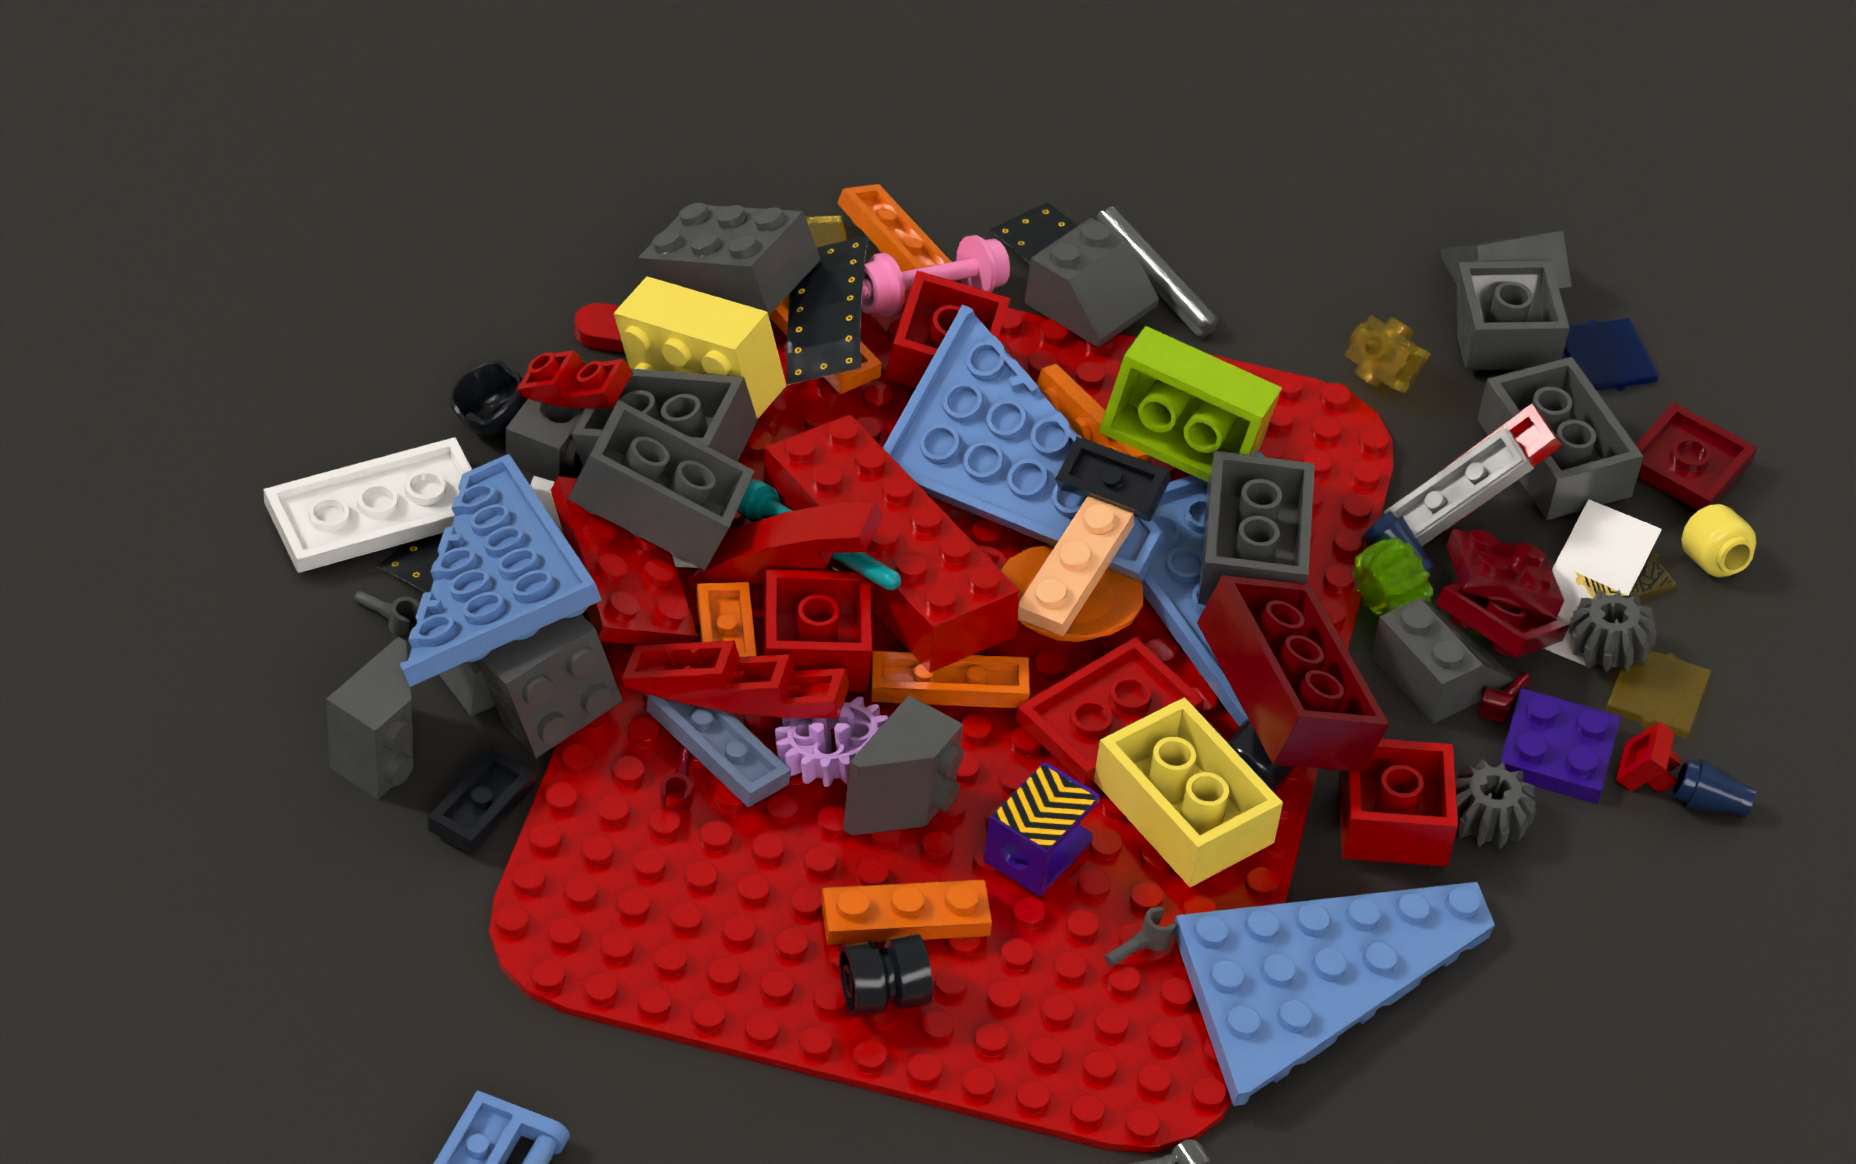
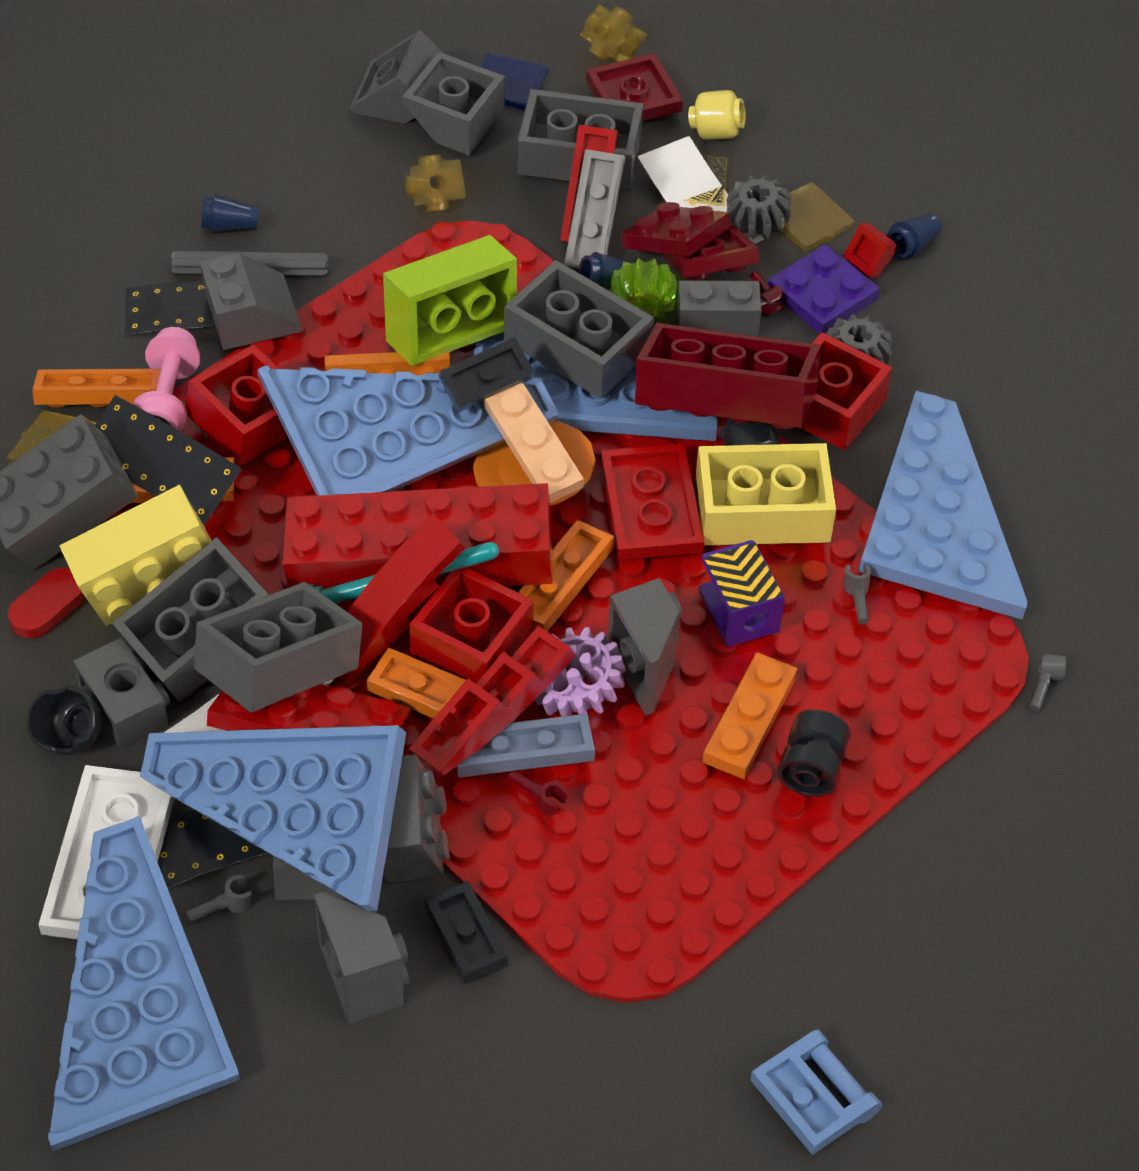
camera: 55 degrees left, 5 degrees up
(224, 602) = (138, 1006): none -> medium blue wing
(569, 383) = (108, 657): red slope -> none
(1199, 222) = (227, 214): none -> dark blue cone
(1746, 398) = (612, 33): none -> clear yellow brick

